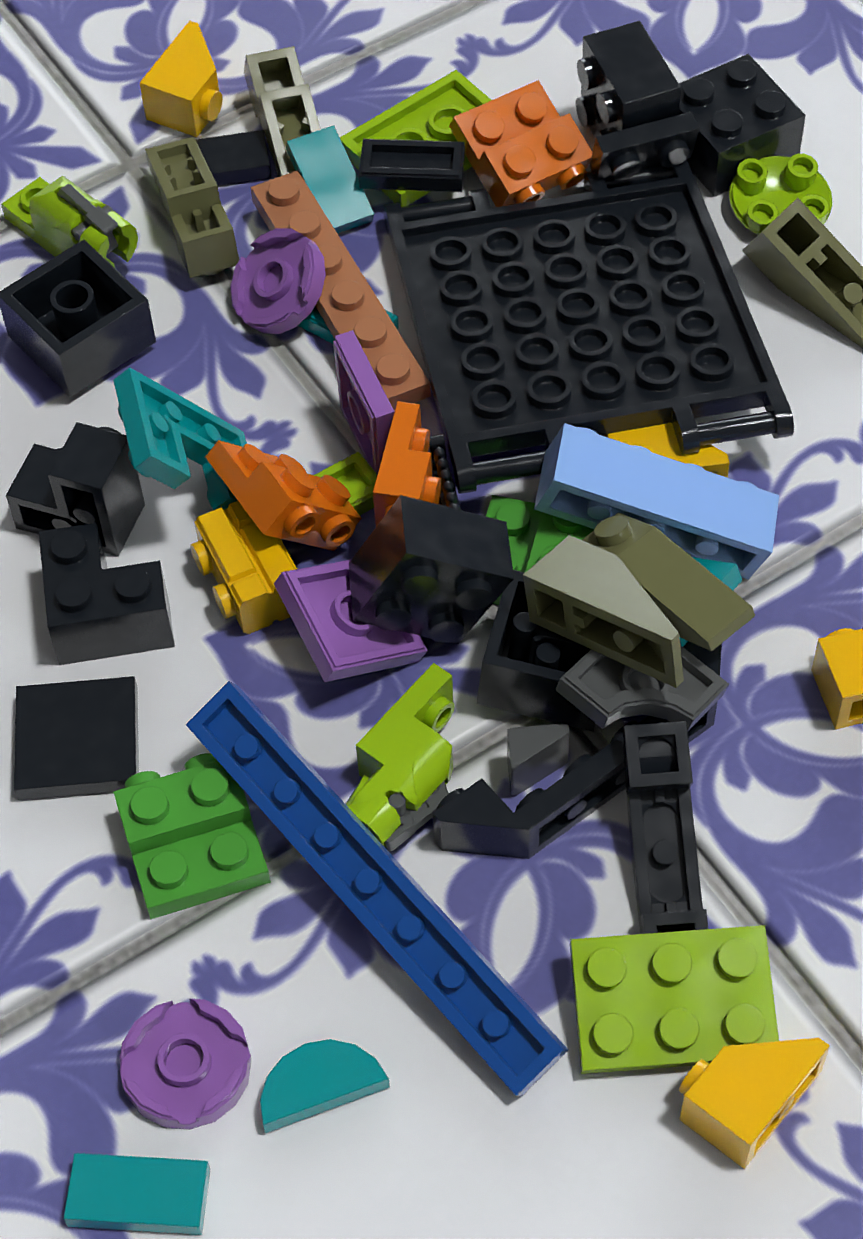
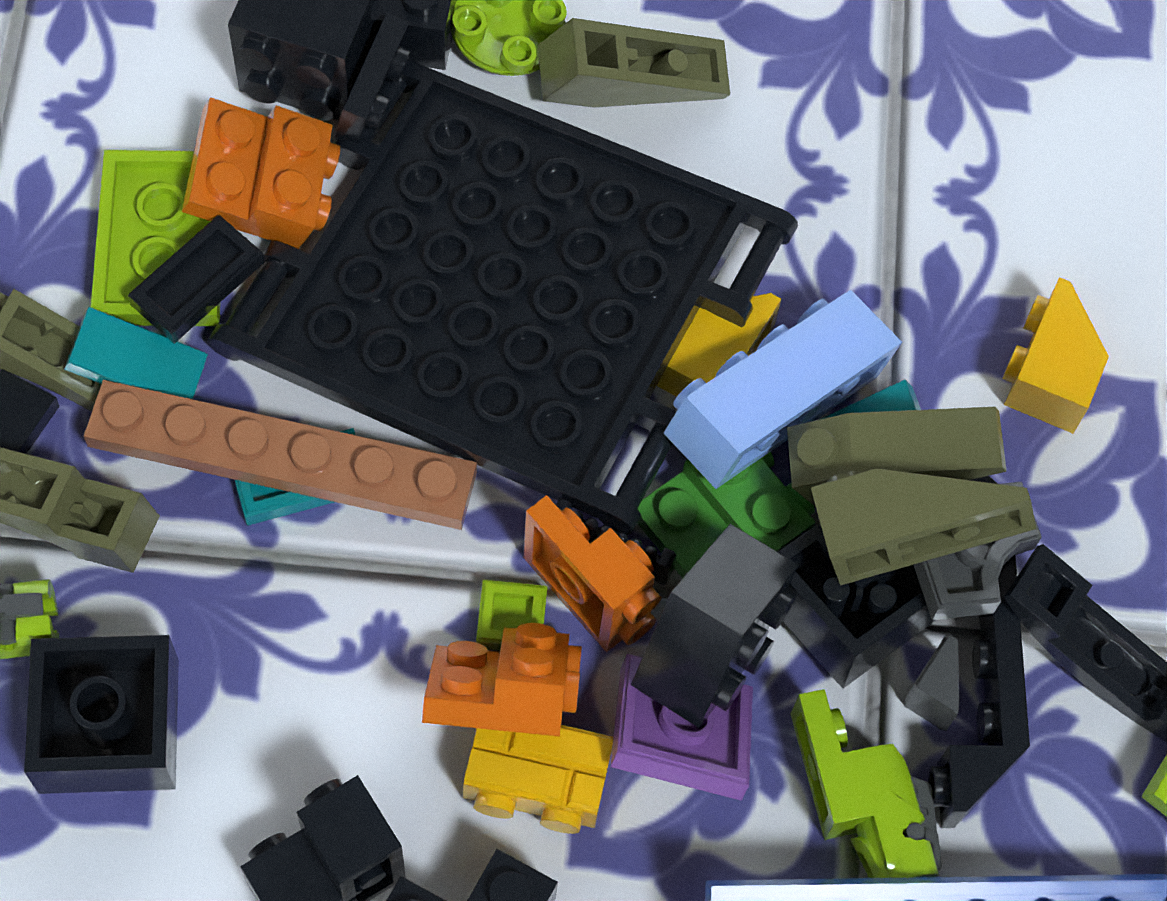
camera: 60 degrees left, 10 degrees up
(167, 429) = (360, 732): teal plate -> none
(278, 281) = (227, 499): medium lavender tile -> none
(362, 398) = (466, 537): medium lavender tile -> none

